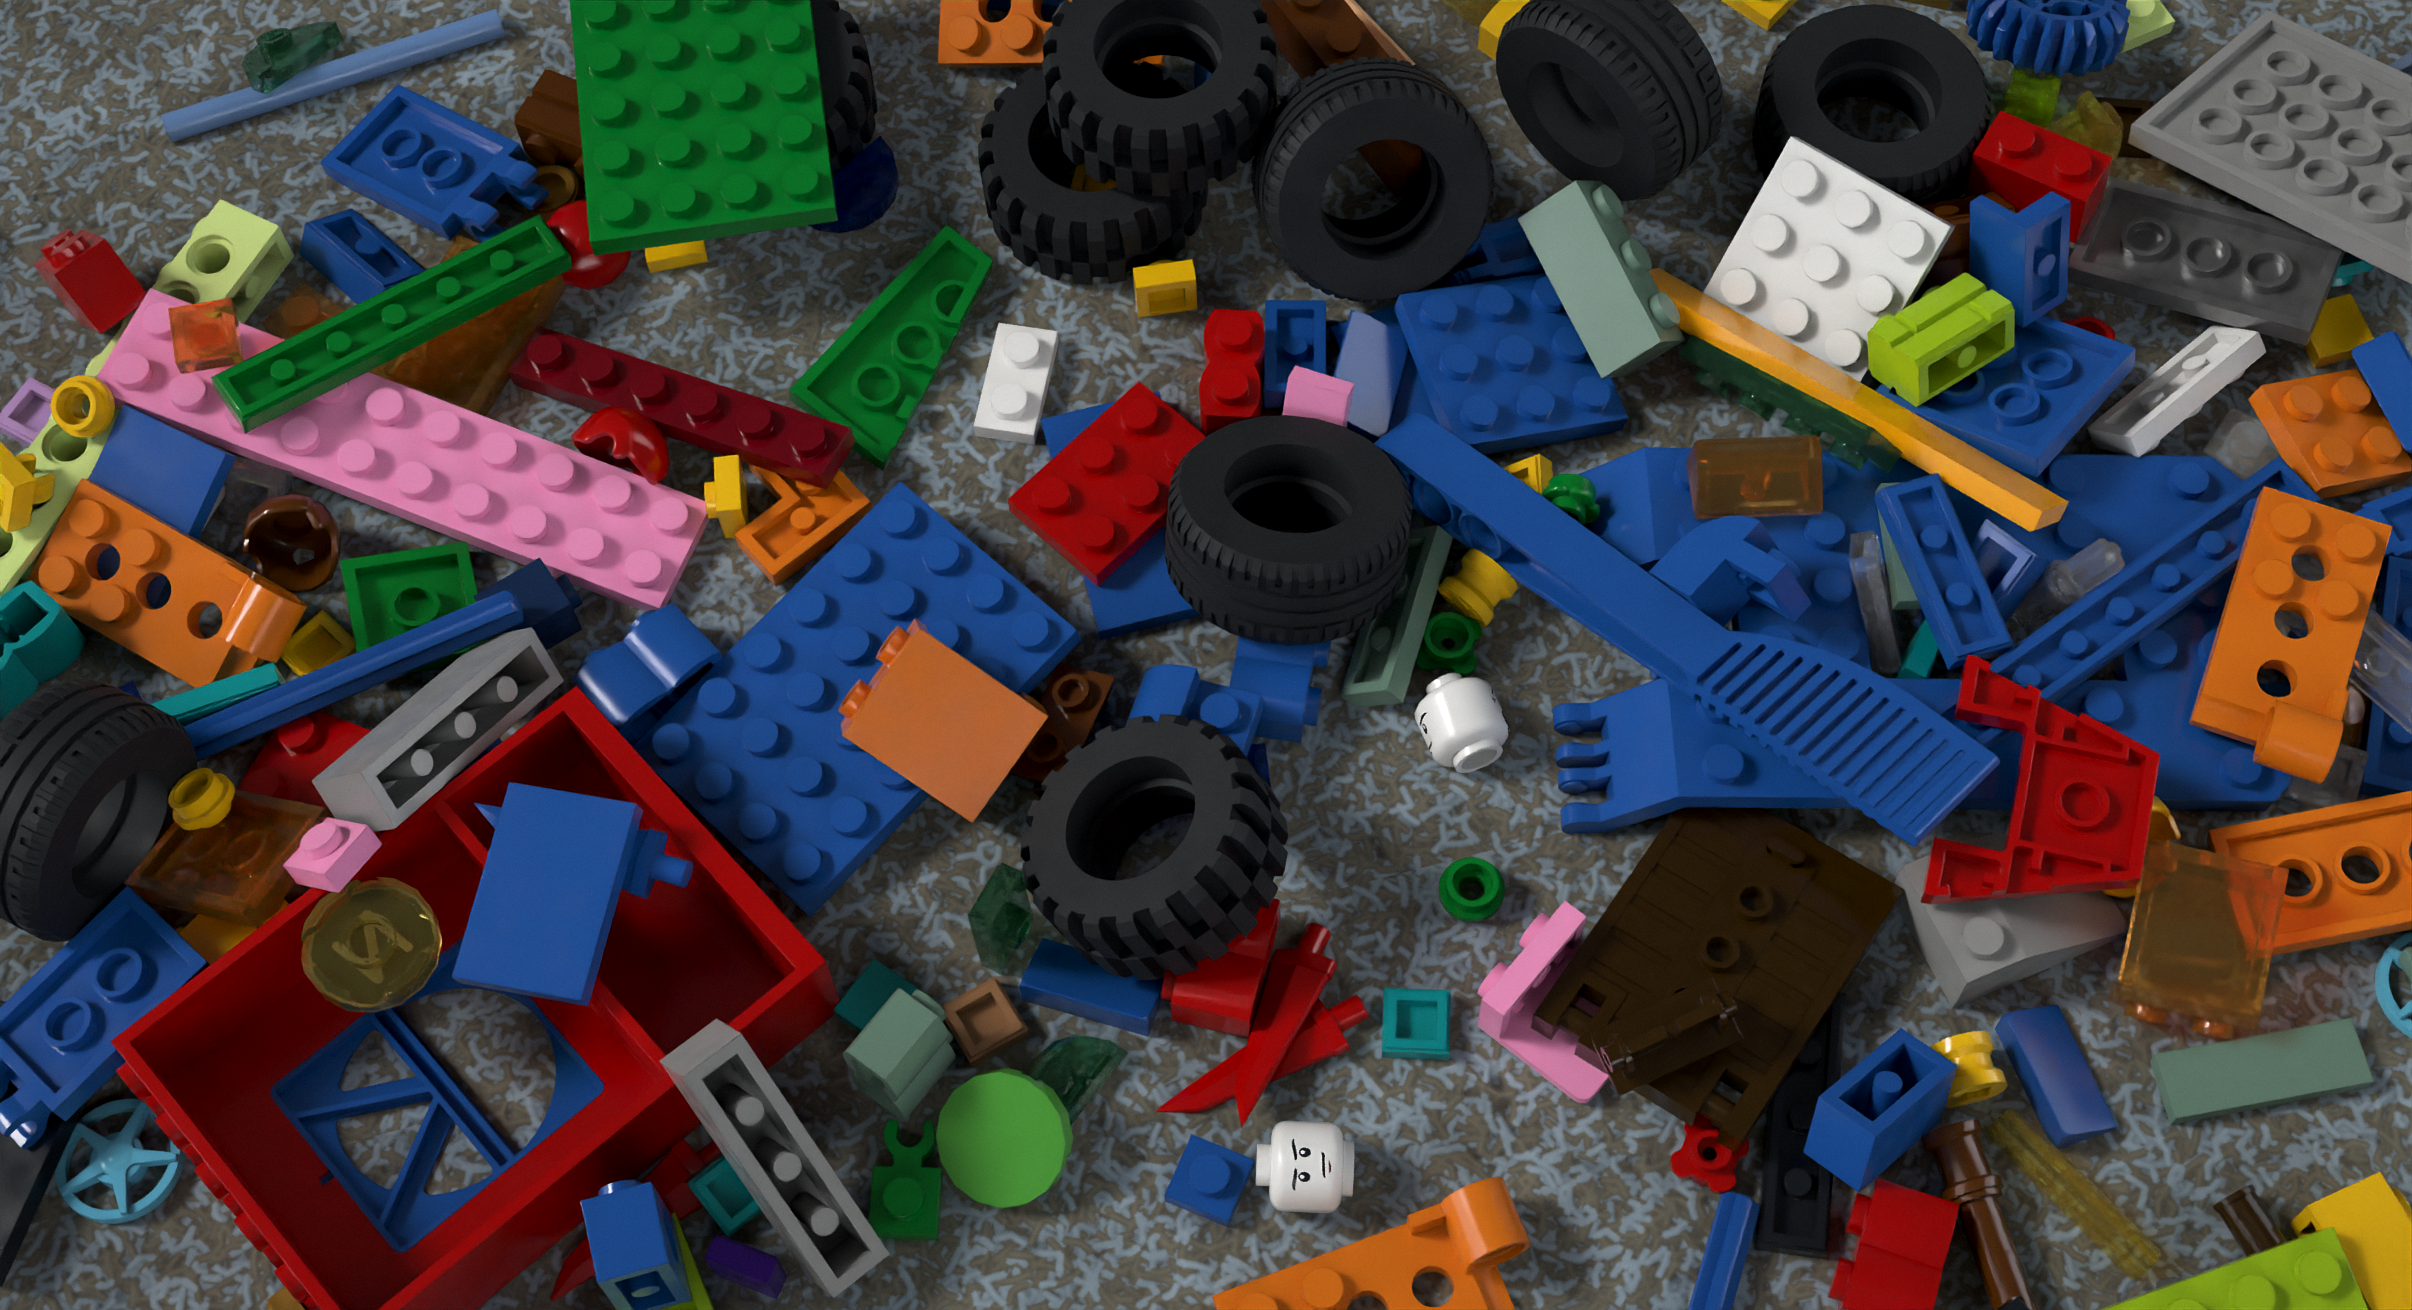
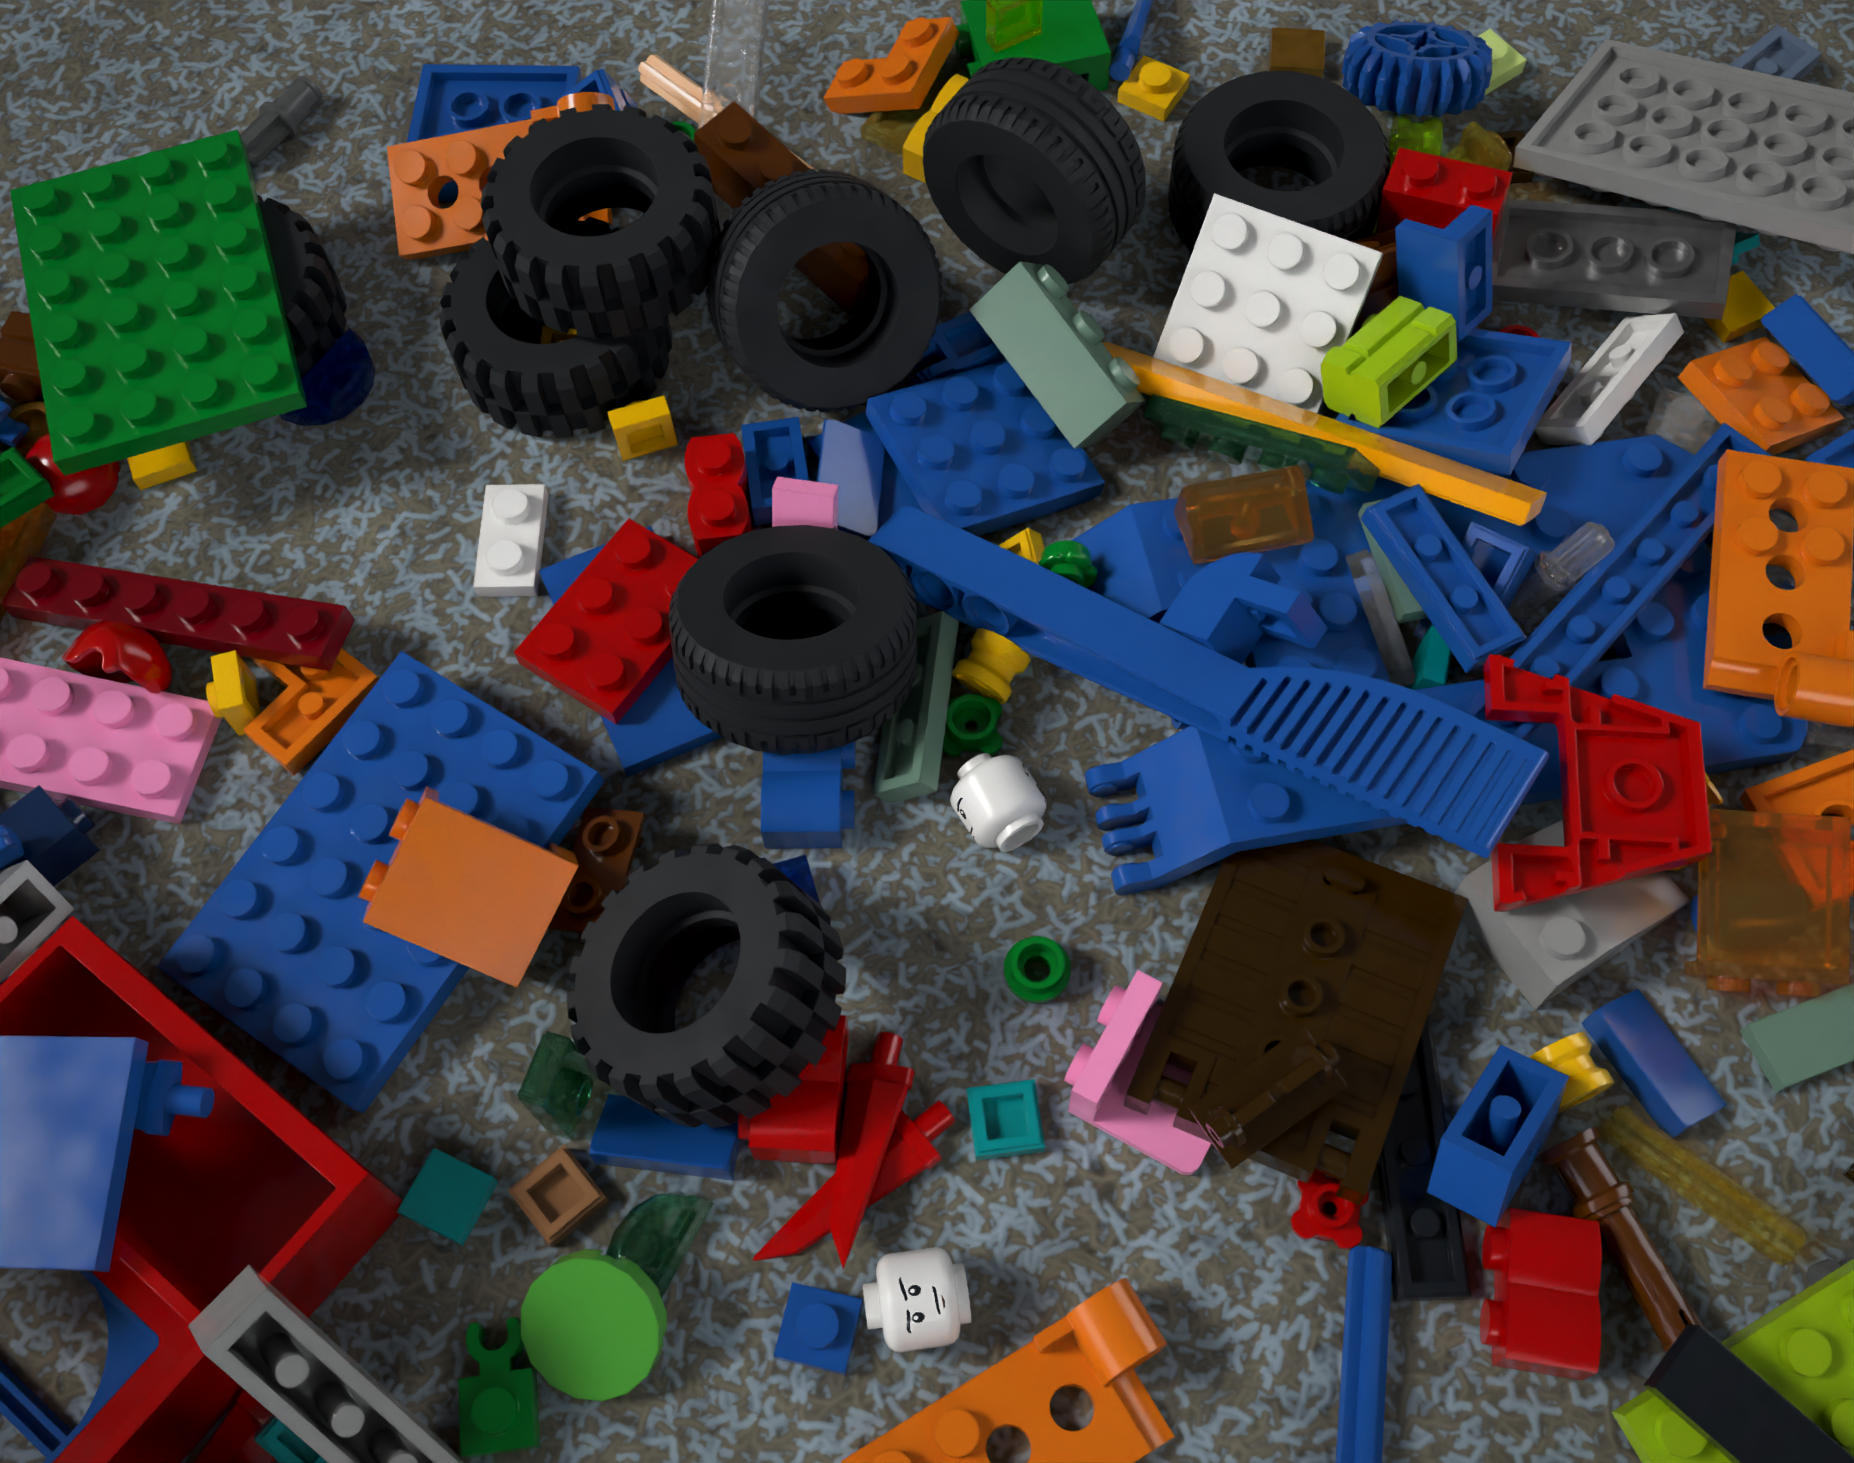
camera: 10 degrees left, 0 degrees up
(646, 671) = (163, 886): blue brick -> none
(895, 347) = (387, 524): green wing -> none
(901, 1052) = (470, 1250): sand green brick -> none
(1181, 692) = (712, 818): blue brick -> none

